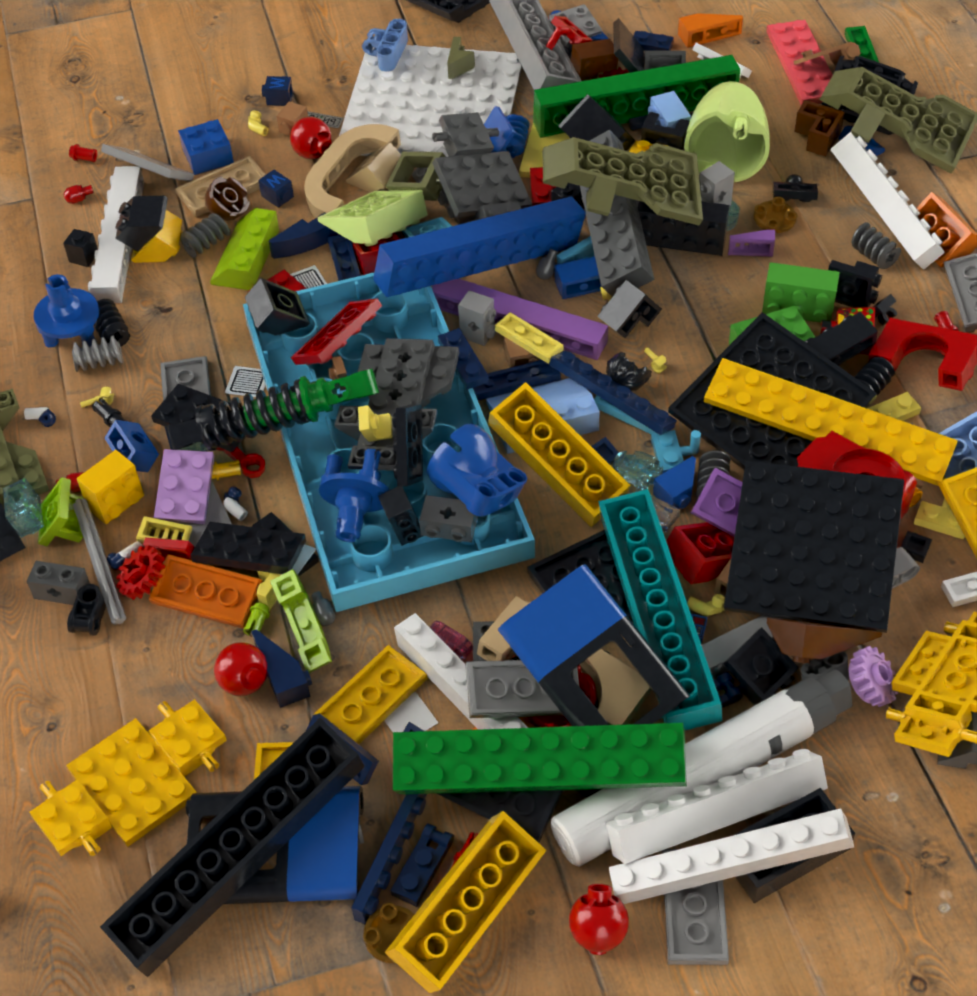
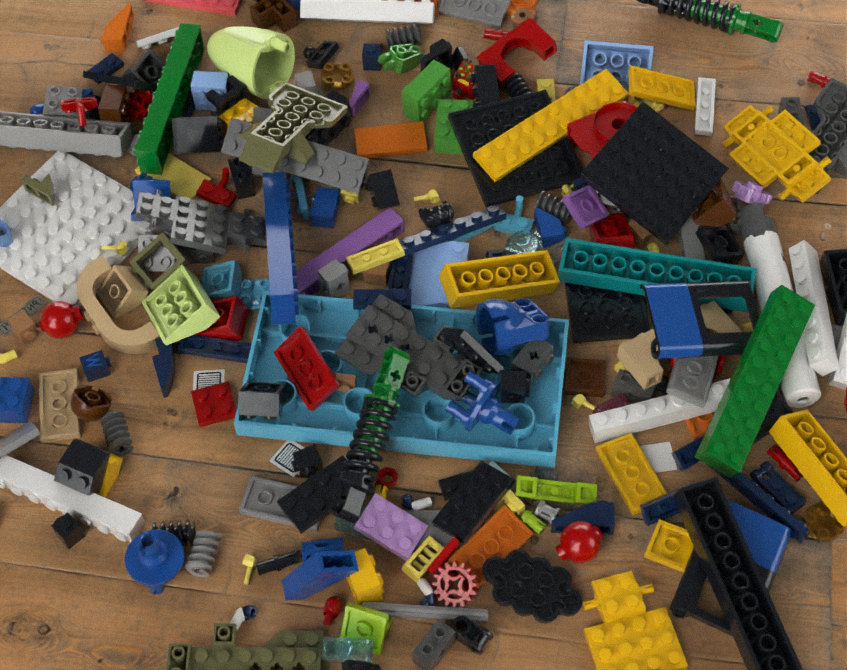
camera: 65 degrees left, 5 degrees up
(90, 438) = (318, 573): none -> blue slope
(169, 647) = (531, 586): none -> black plate
(238, 386) = (307, 461): none -> black brick
(246, 250) = (151, 410): lime slope -> none
(274, 626) = (547, 512): none -> light grey bush
(374, 426) = (440, 365): light yellow bracket -> none
(425, 145) = (121, 249): none -> light yellow hand
(445, 606) = (580, 400): none -> light yellow hand
(479, 598) = (585, 377): none -> reddish brown plate
(547, 265) = (300, 222): dark grey cylinder -> none
(715, 295) = (390, 140): none -> orange tile
(827, 230) = (370, 56): none -> dark blue slope
(835, 249) = (401, 58): none -> bright green hinge

